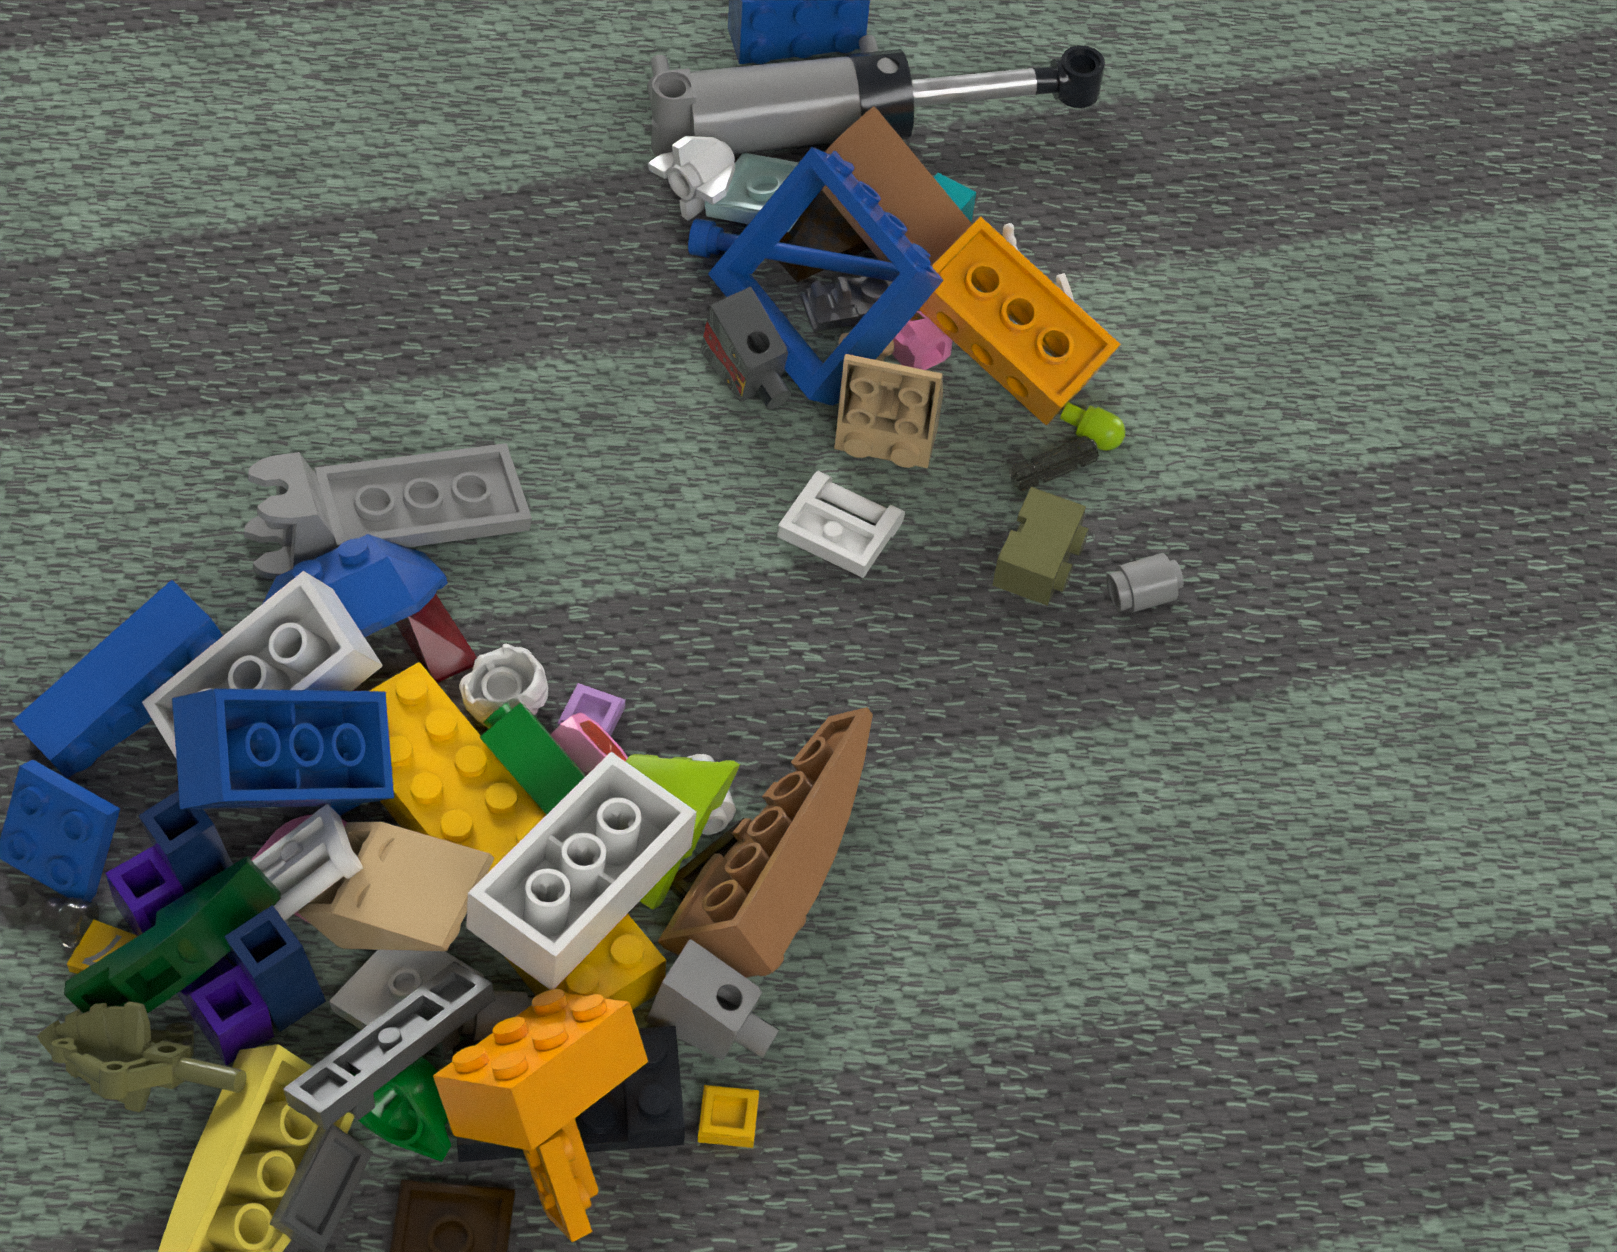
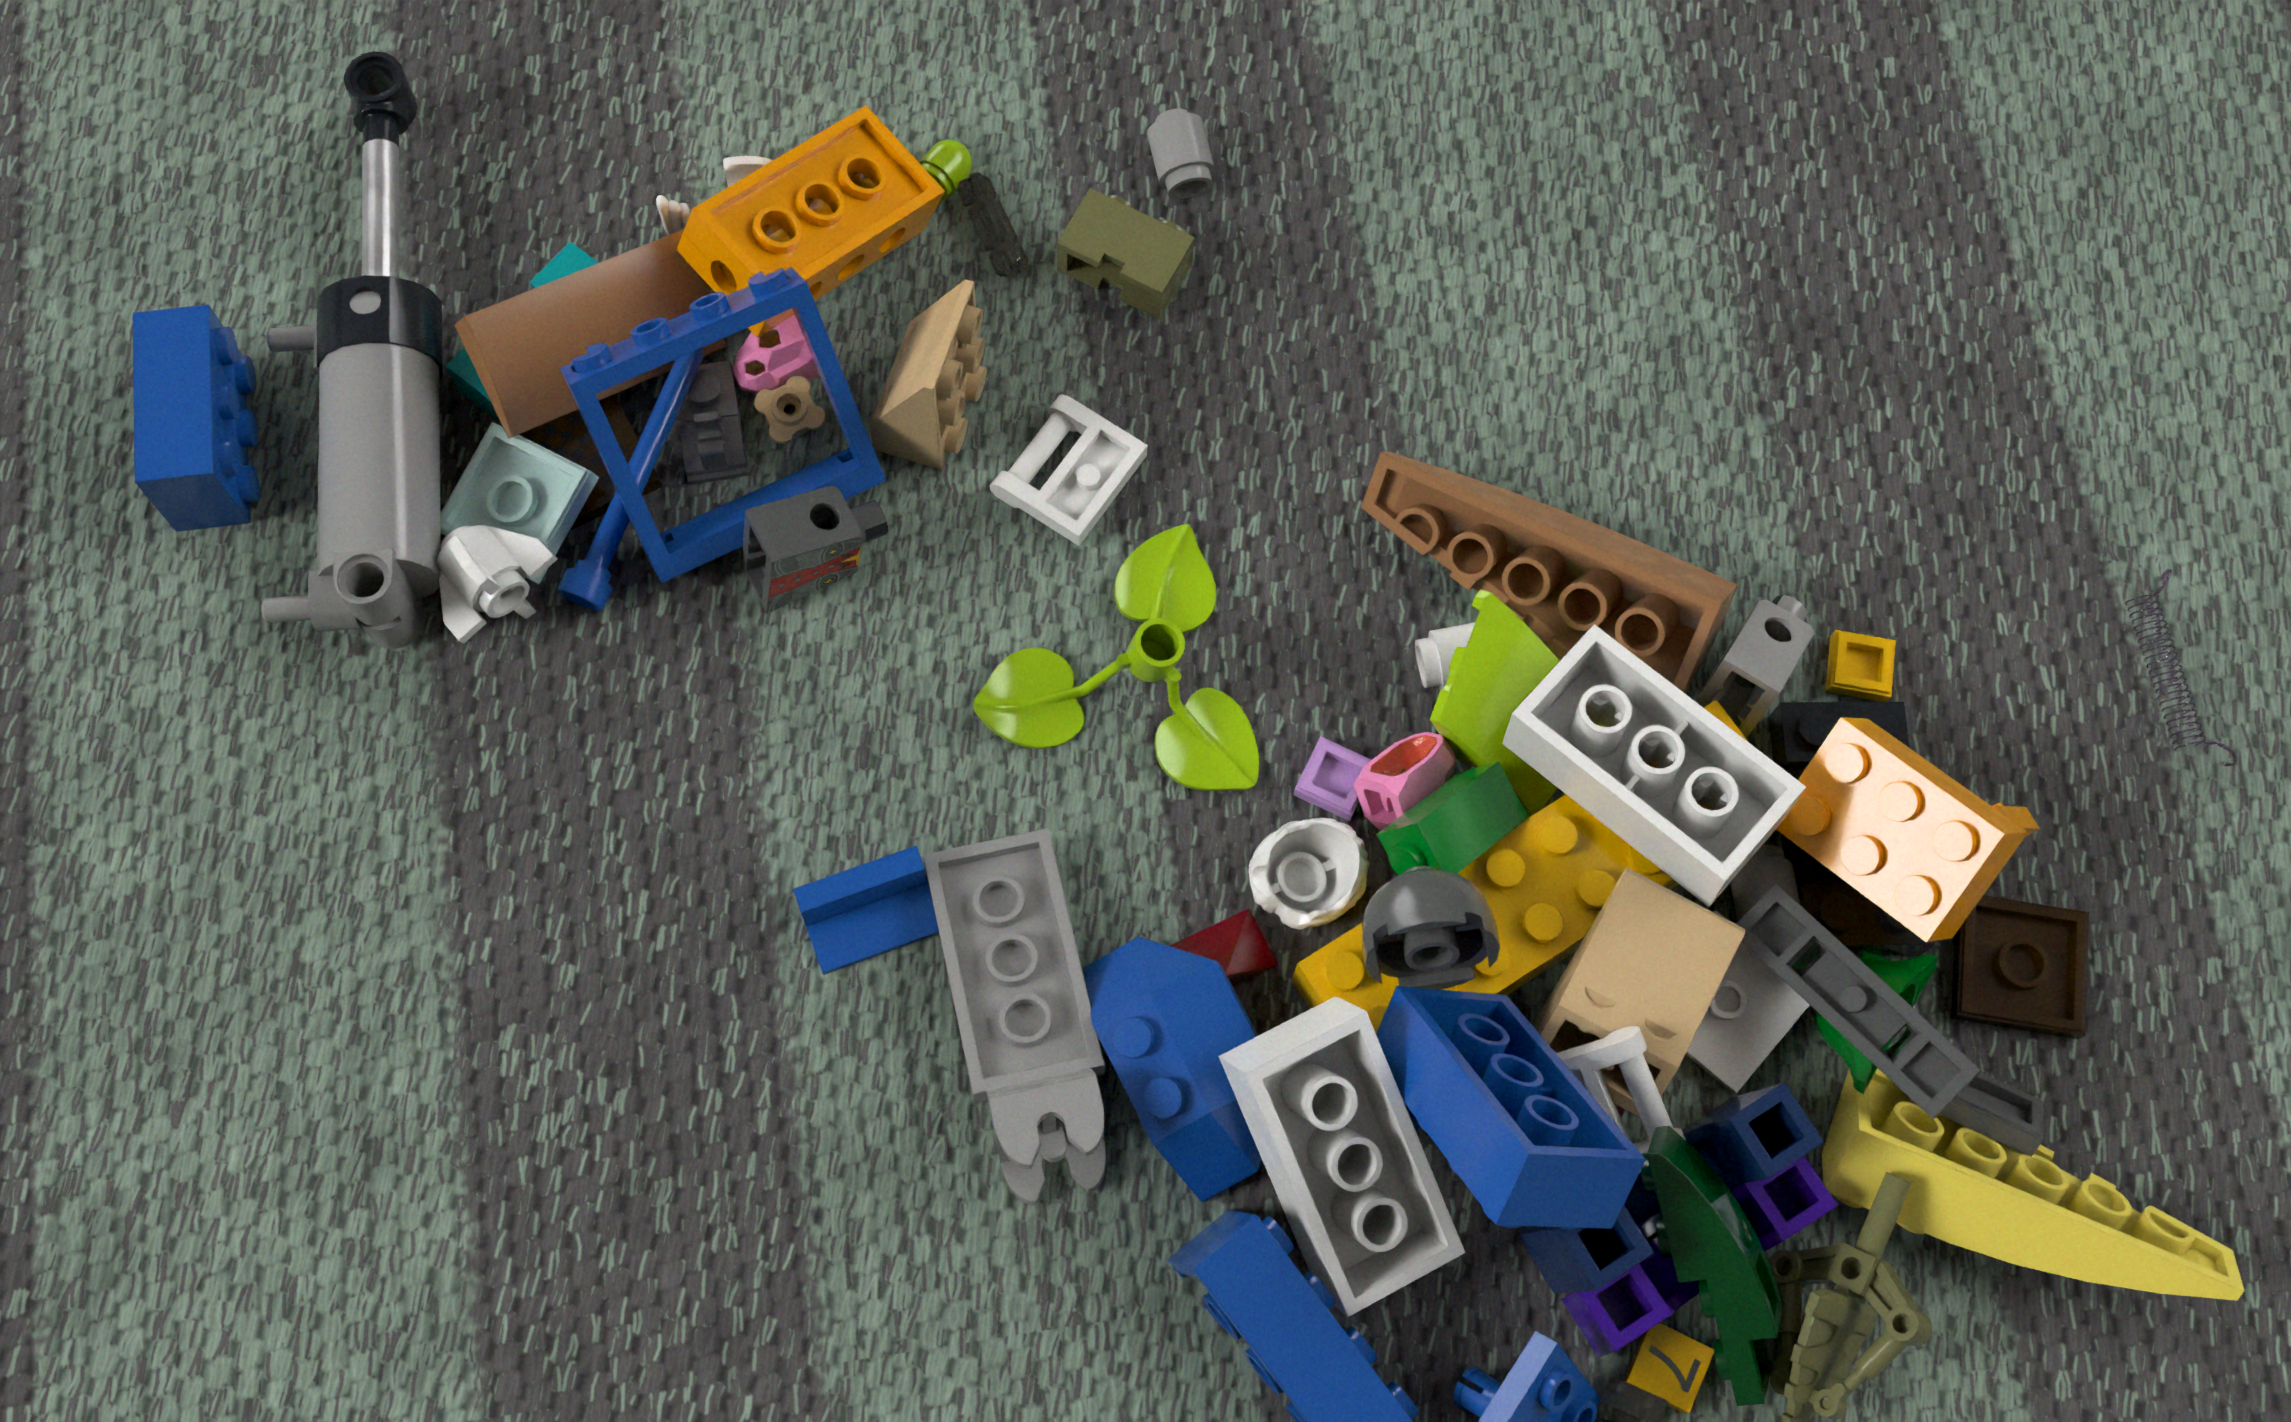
camera: 85 degrees left, 15 degrees up
(435, 709) = (1428, 929): none -> dark grey cylinder
(465, 413) = (868, 910): none -> blue panel
(646, 511) = (1173, 593): none -> lime plant

